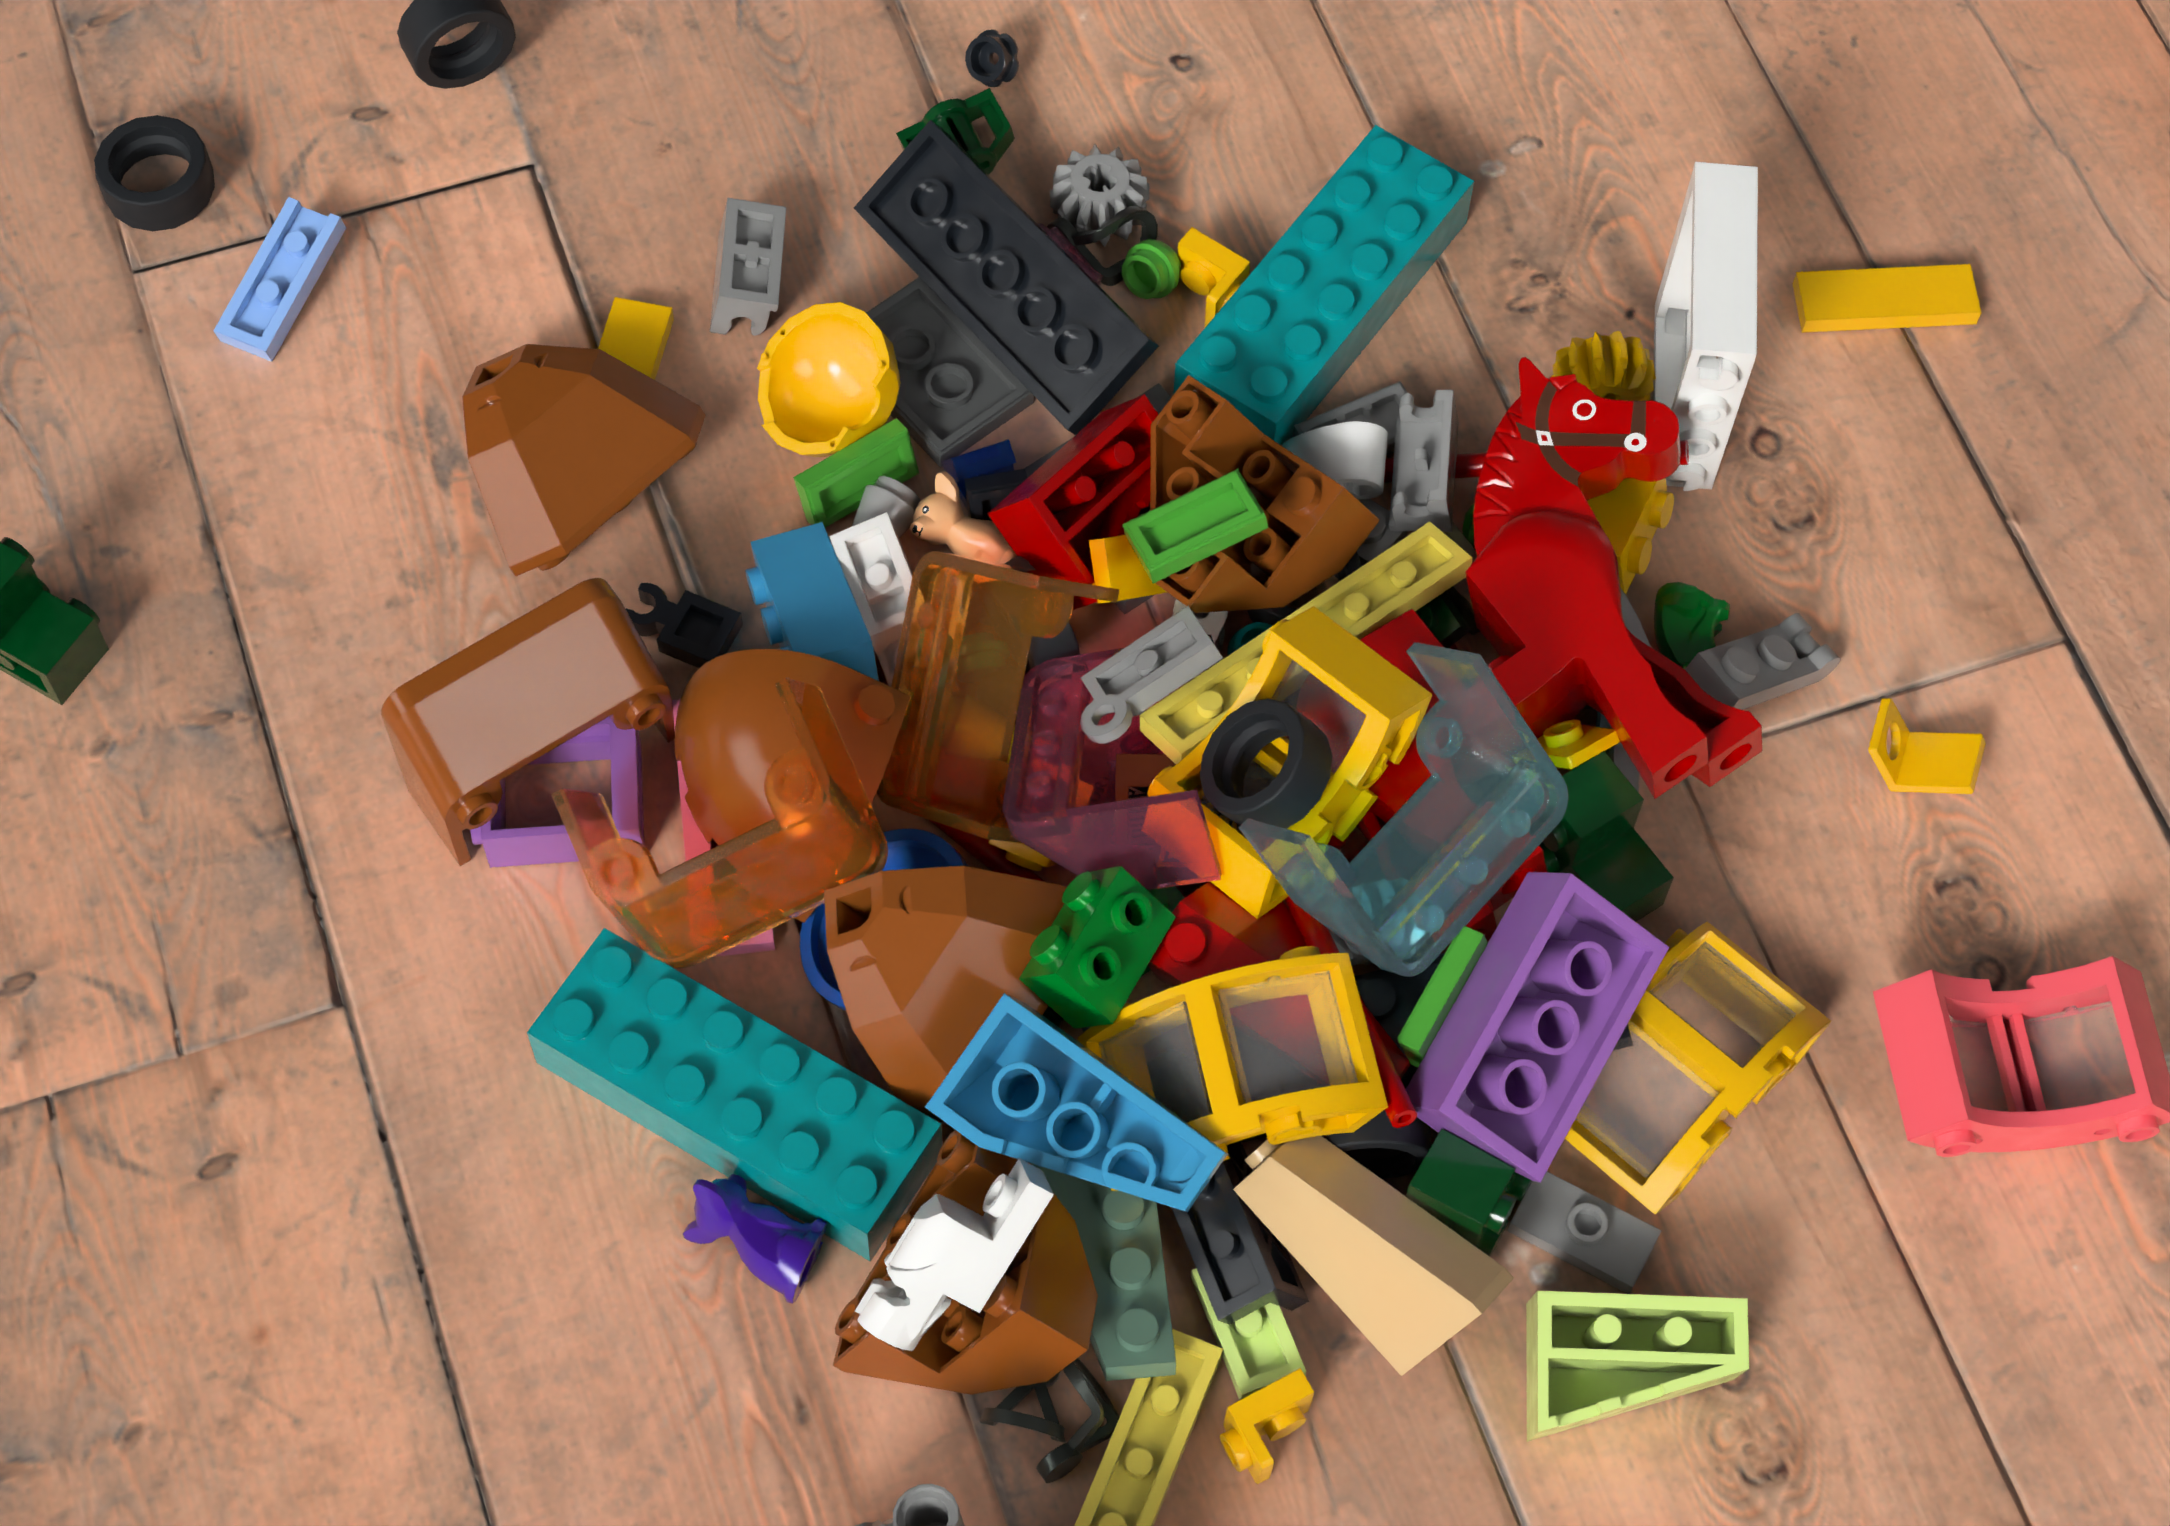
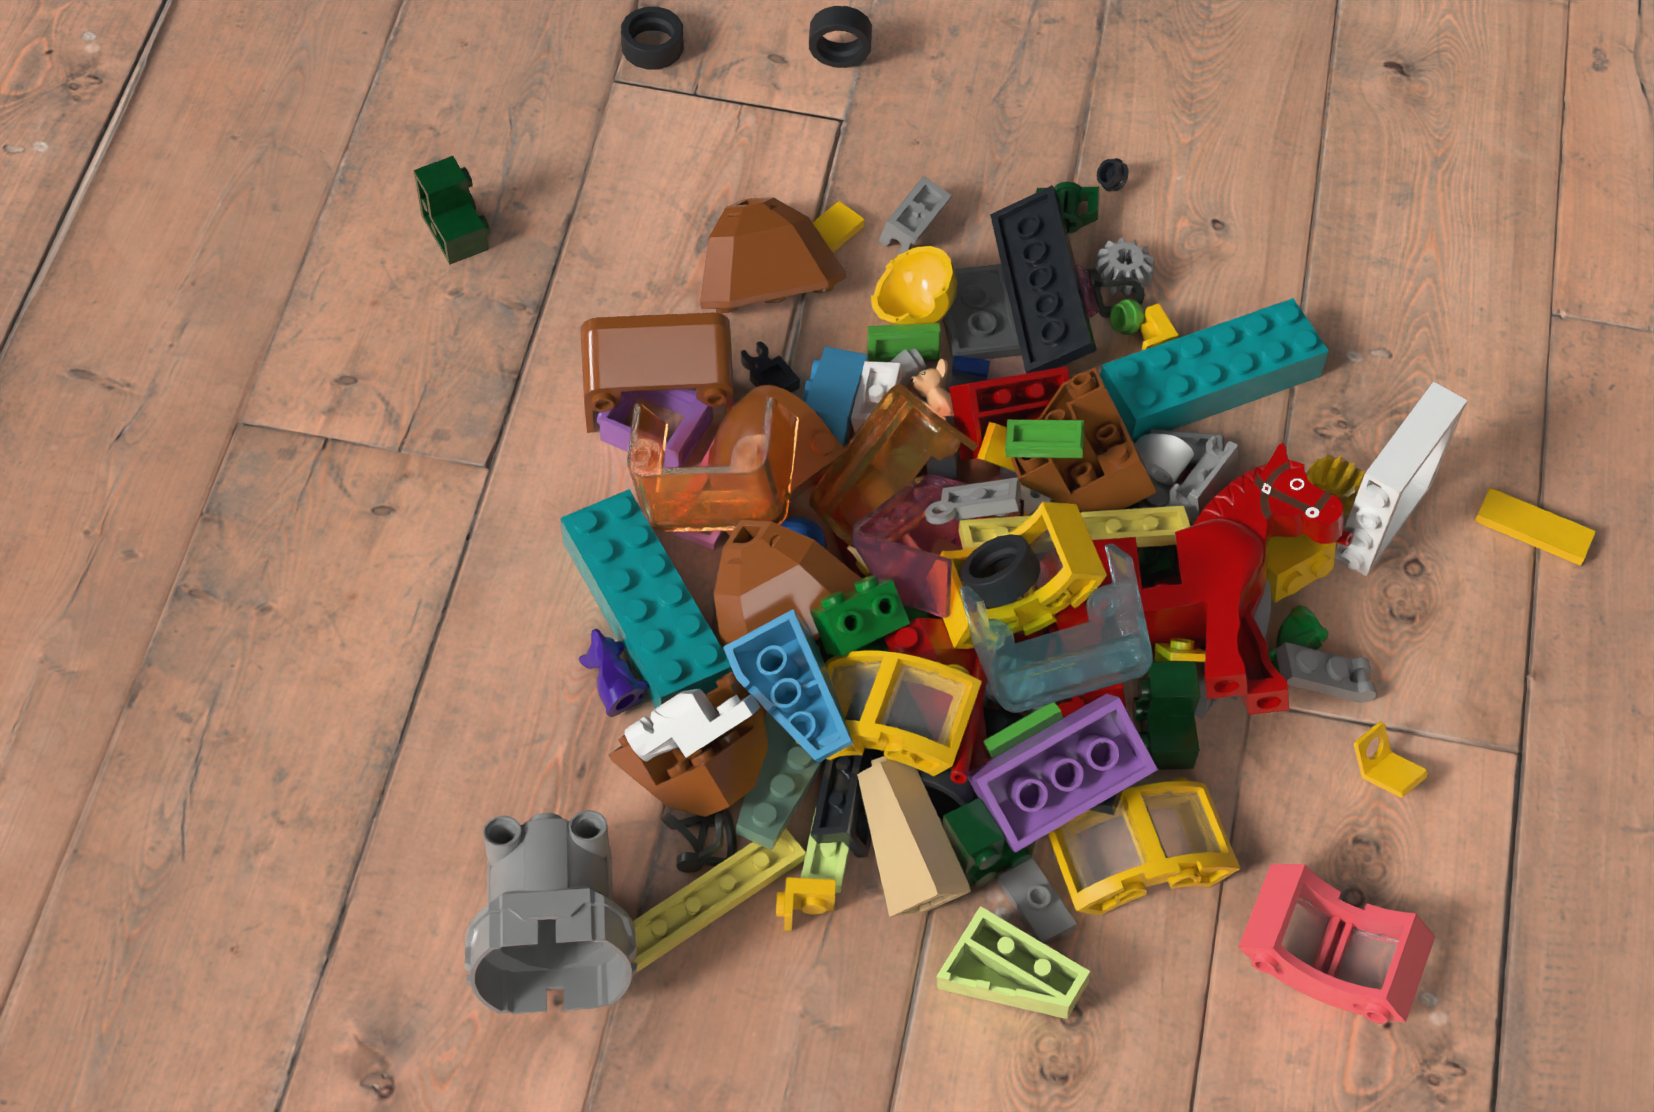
camera: 30 degrees right, 5 degrees down
(279, 280) = (679, 115): light blue hinge -> none

